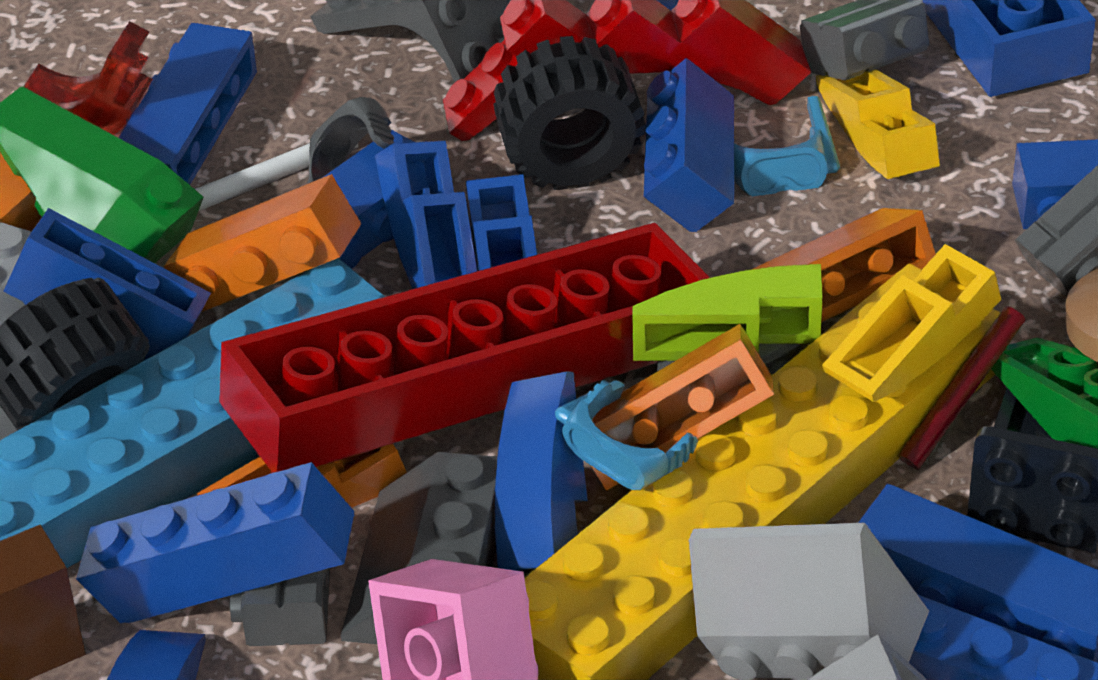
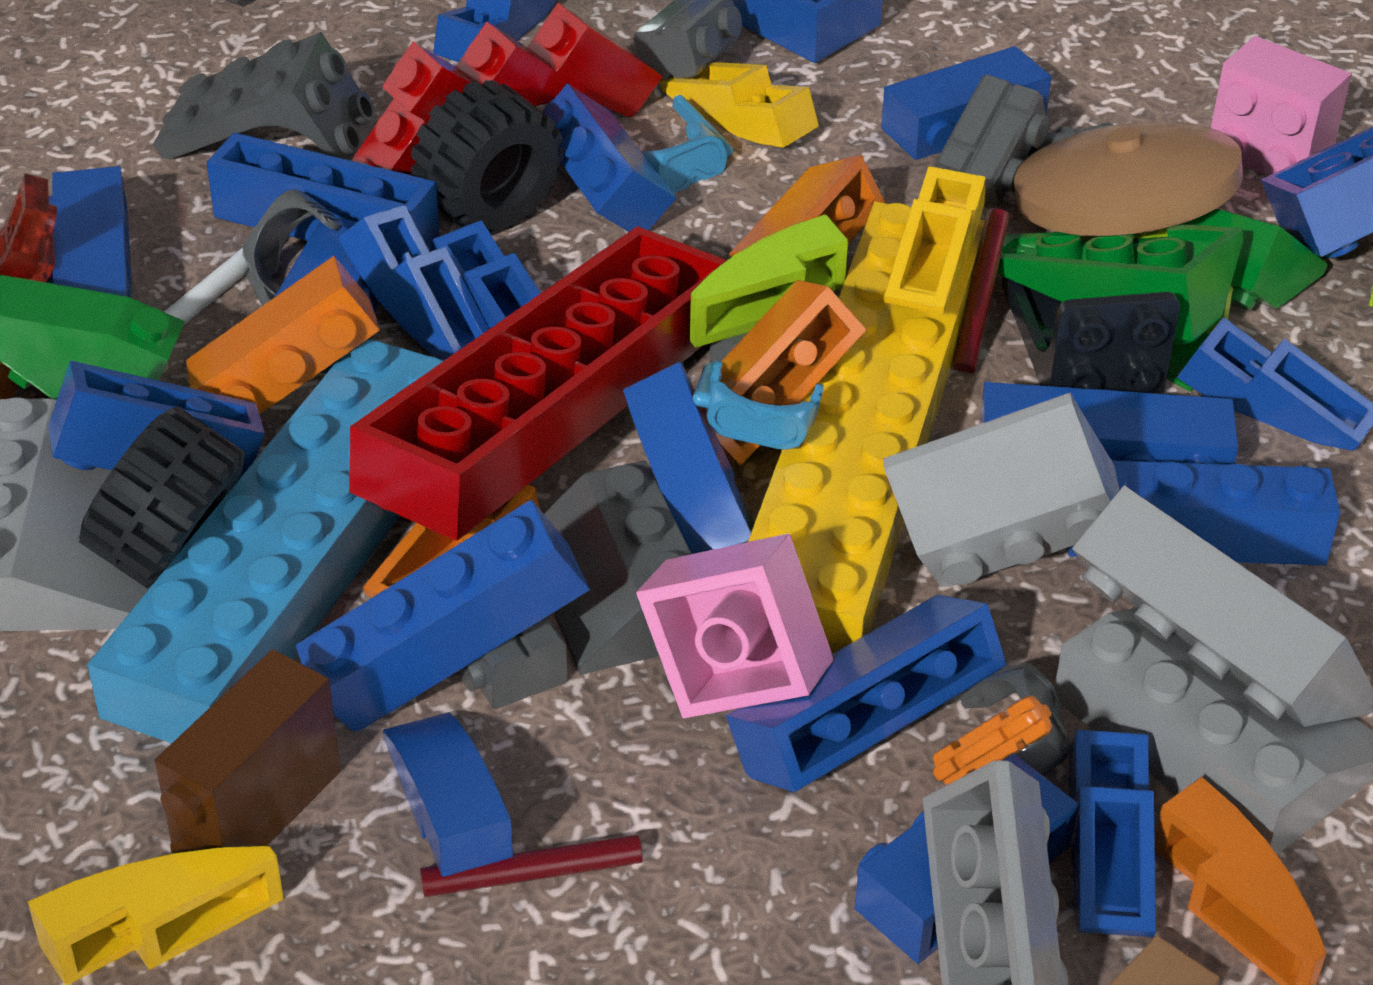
camera: 30 degrees left, 0 degrees up
(414, 101) = (253, 172): none -> blue brick

